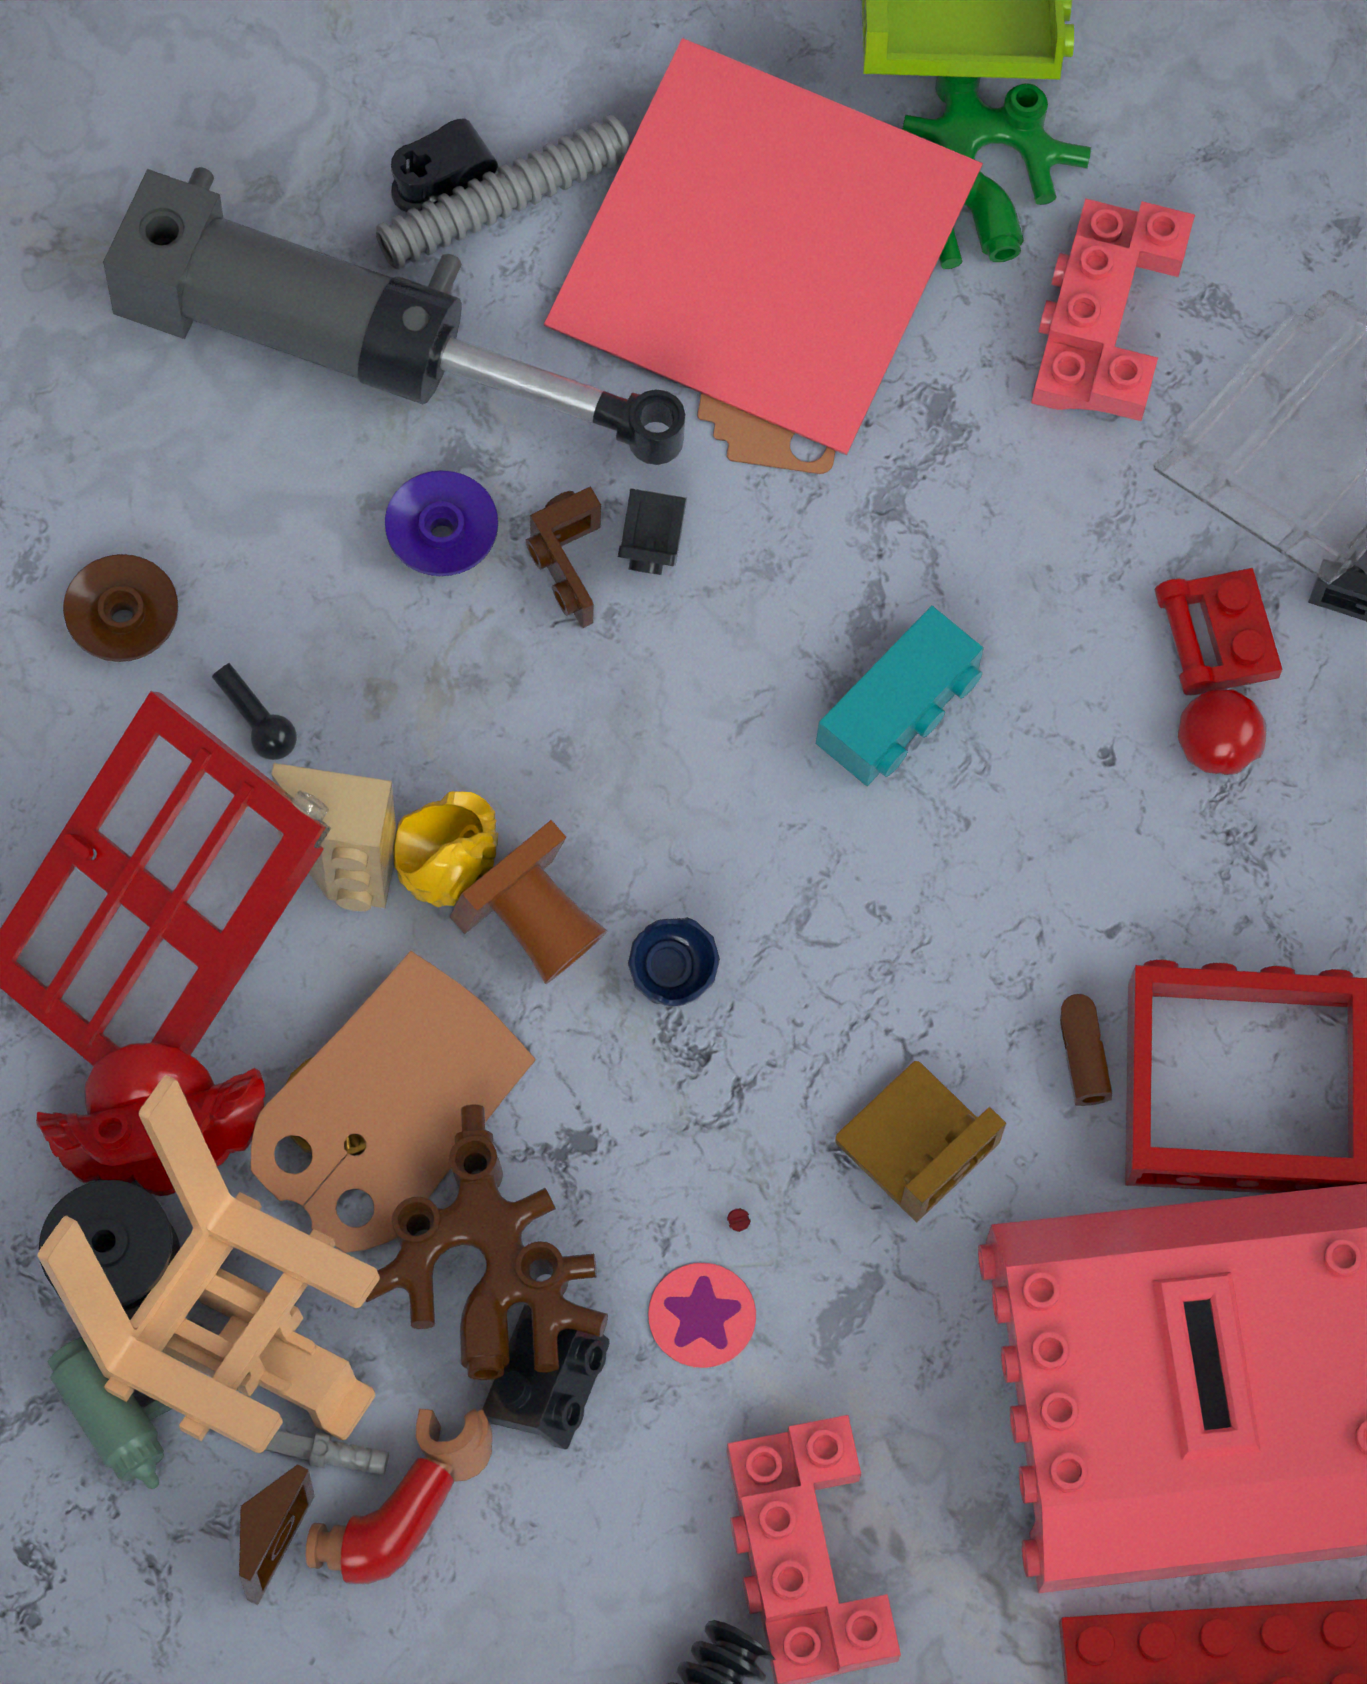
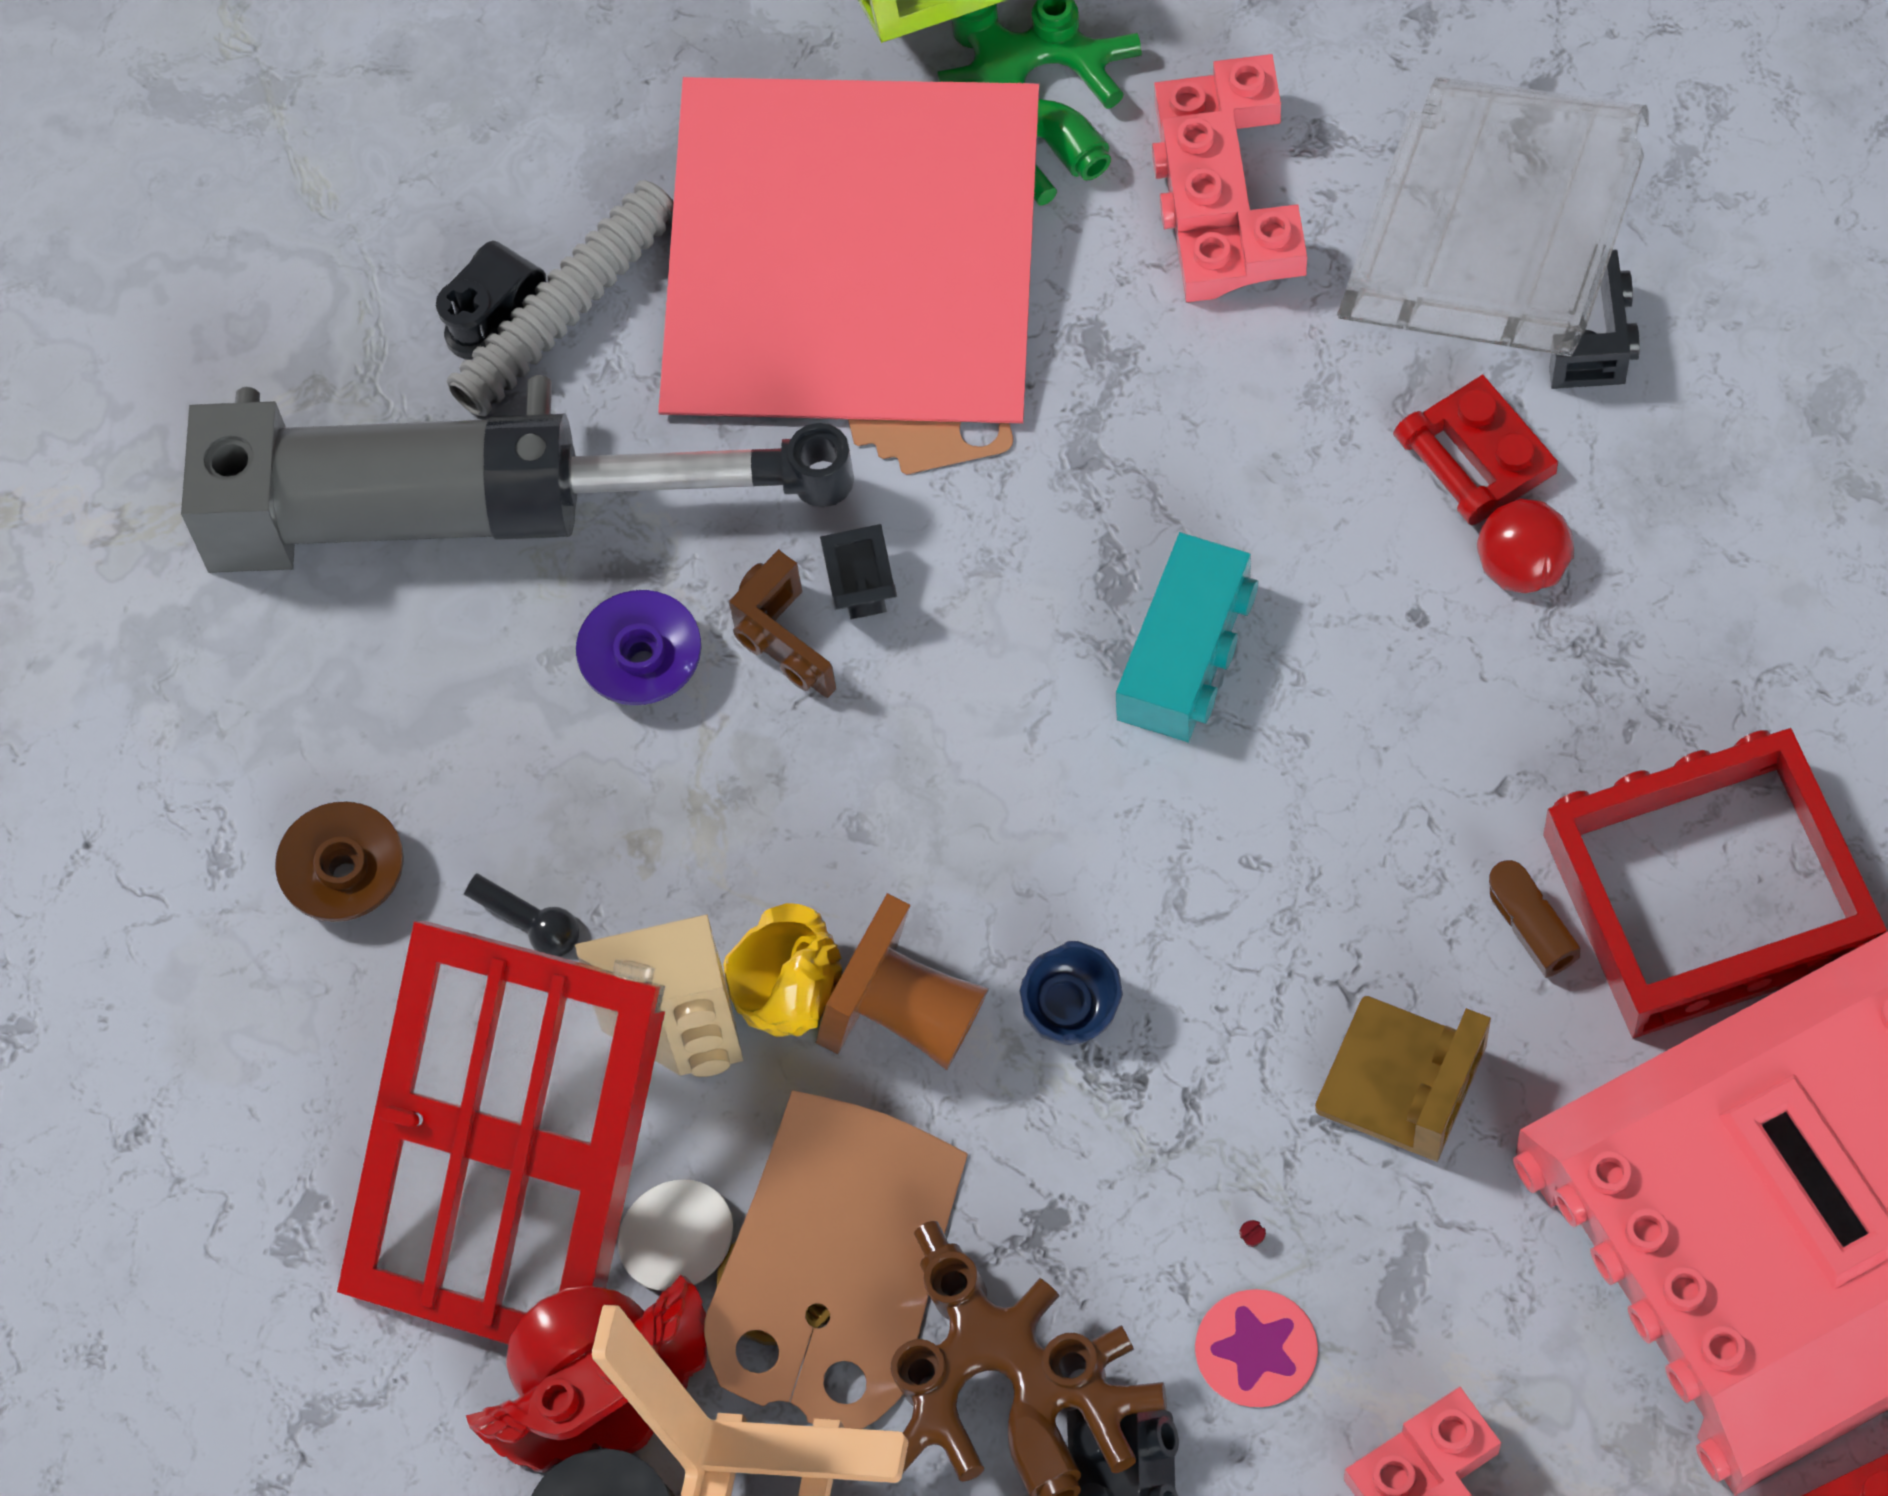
camera: 10 degrees left, 5 degrees down
(269, 1030) = (675, 1232): none -> white sticker

